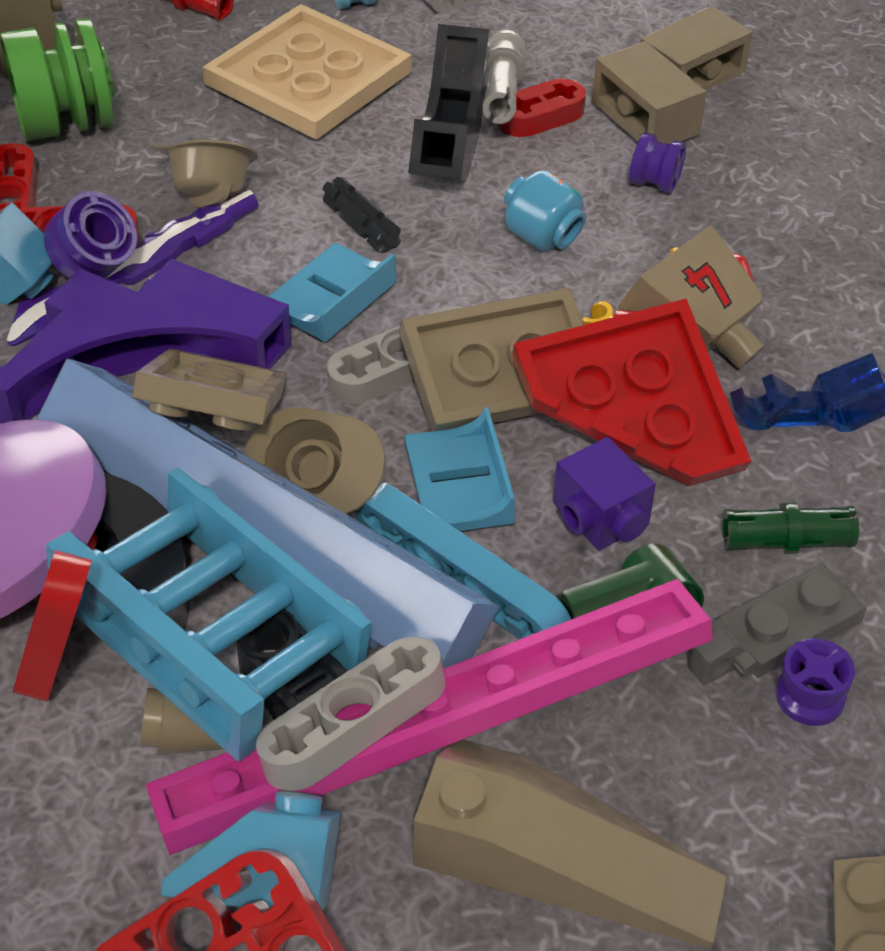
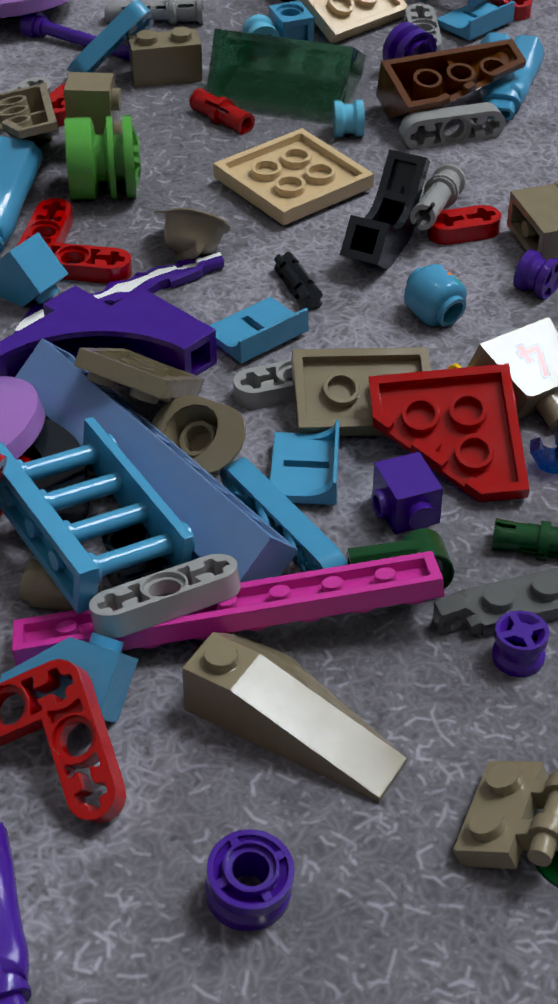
camera: 15 degrees right, 5 degrees down
(90, 235) = (100, 254): dark purple wheel -> none

